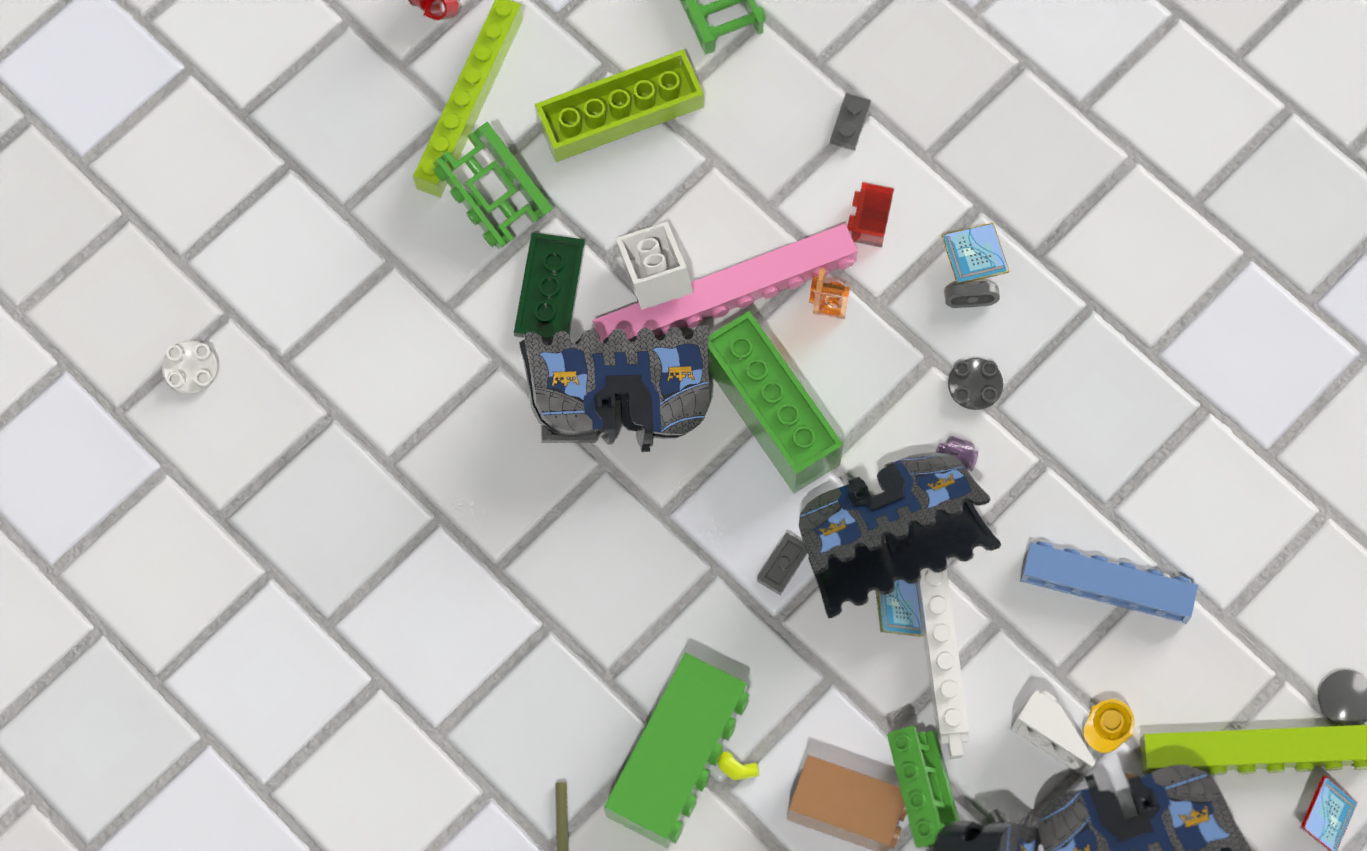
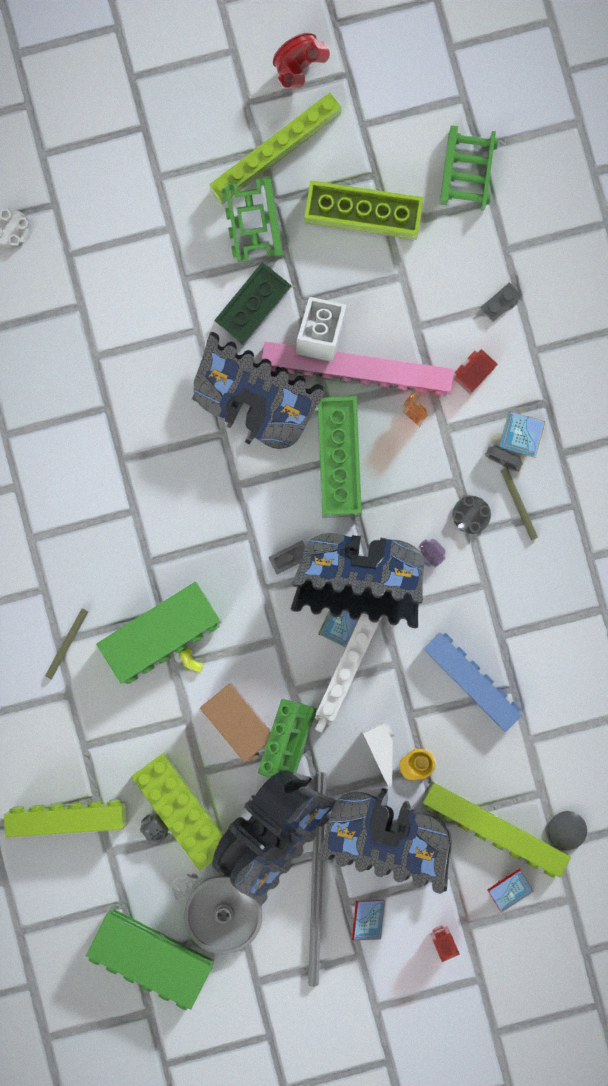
camera: 30 degrees right, 15 degrees up
(1024, 339) = (519, 504): none -> olive bar

